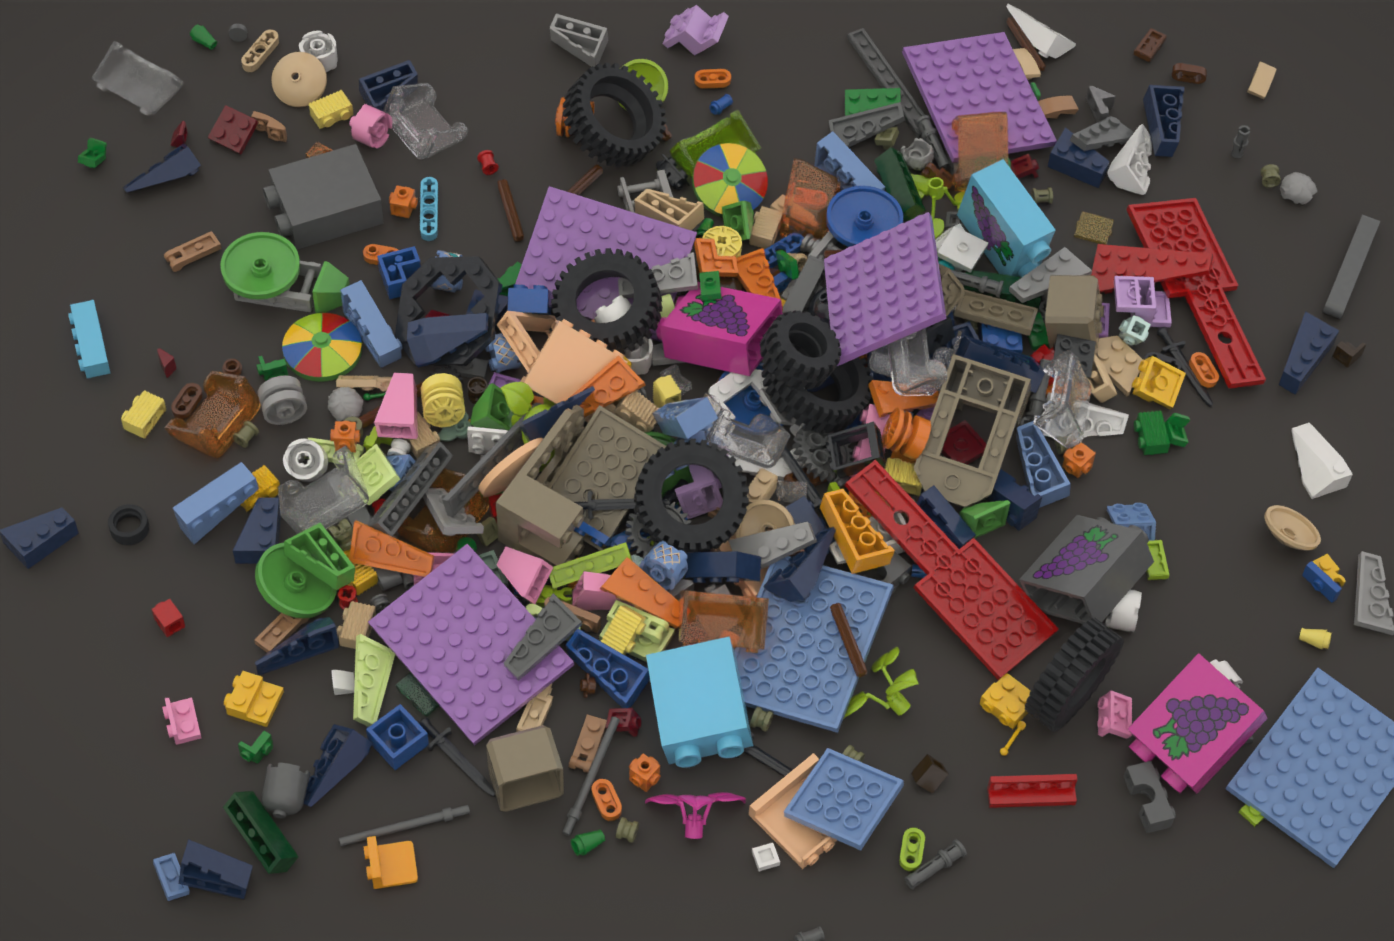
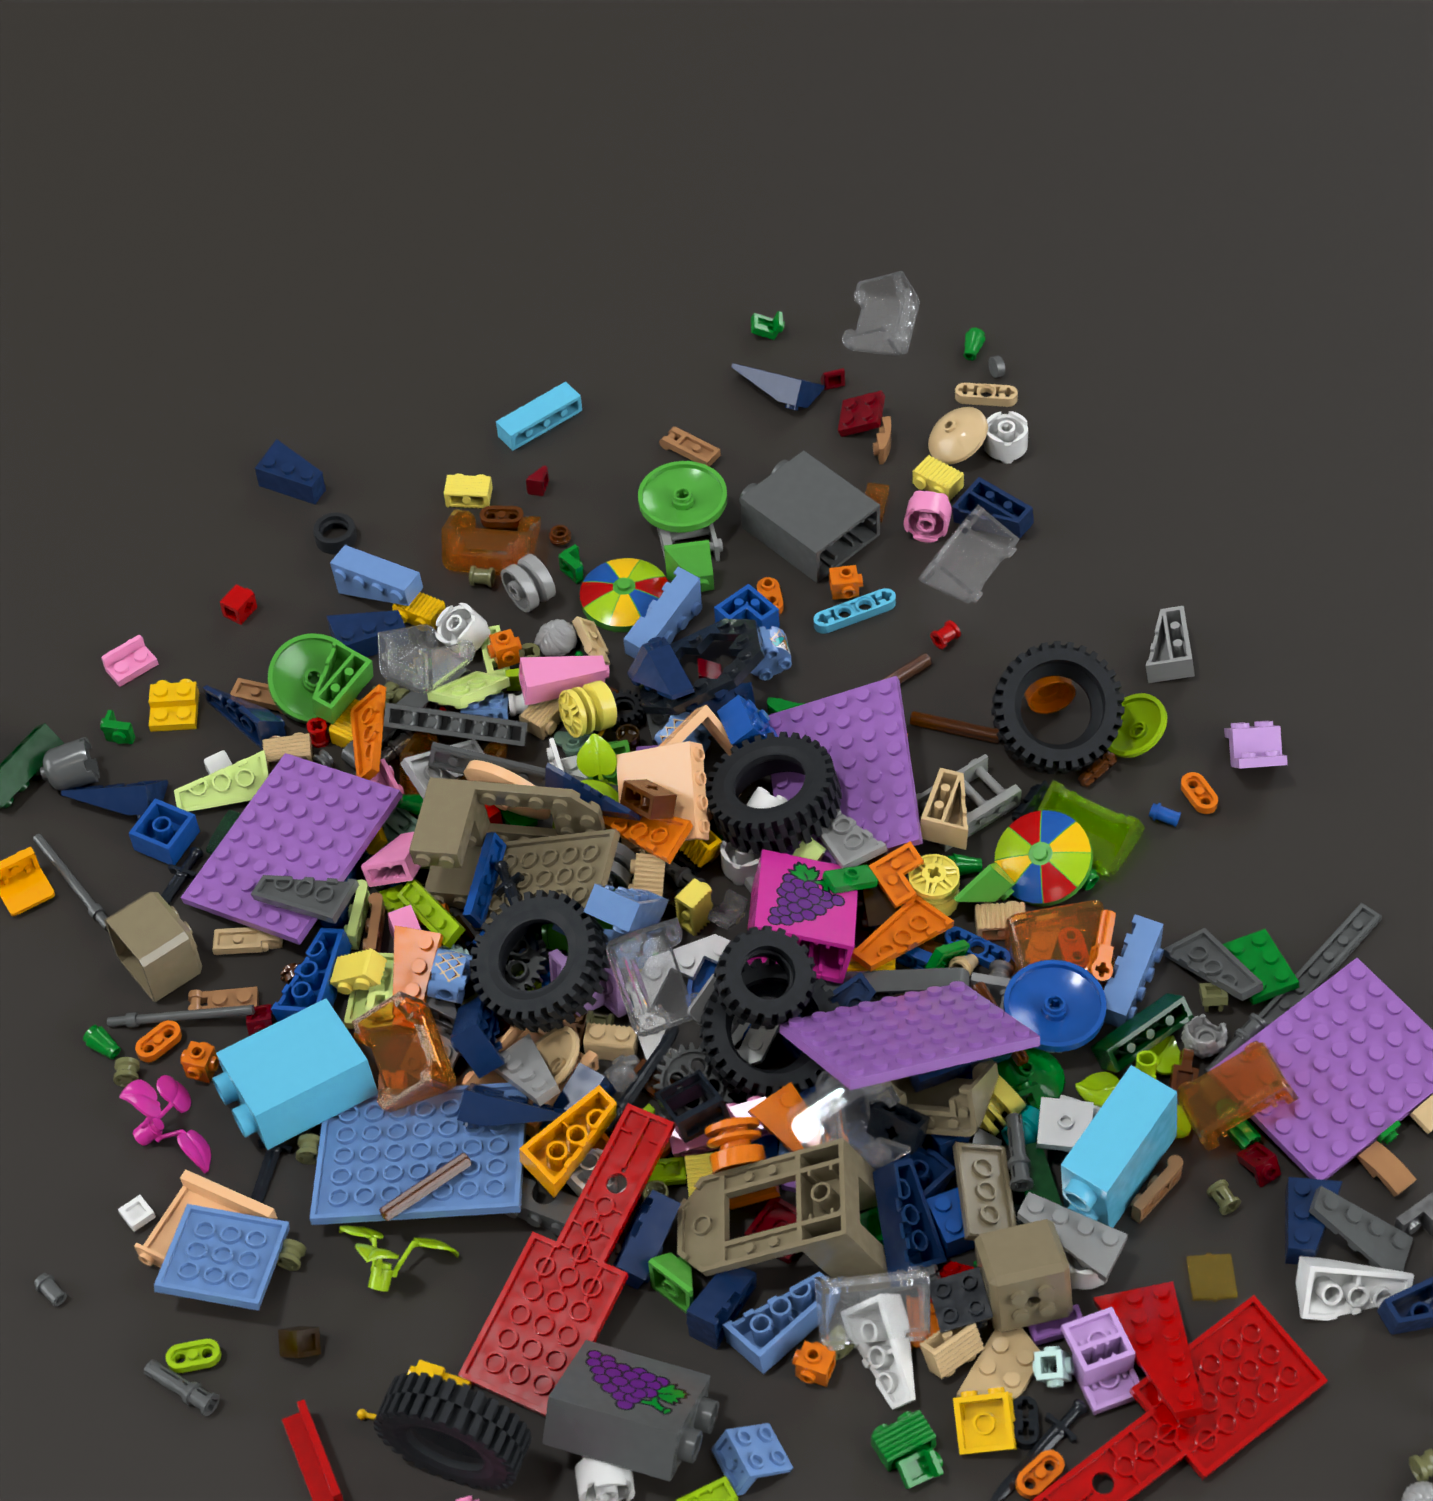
camera: 75 degrees right, 5 degrees down
(586, 372) = (648, 799): none -> reddish brown brick
(837, 177) = (1102, 951): none -> orange connector

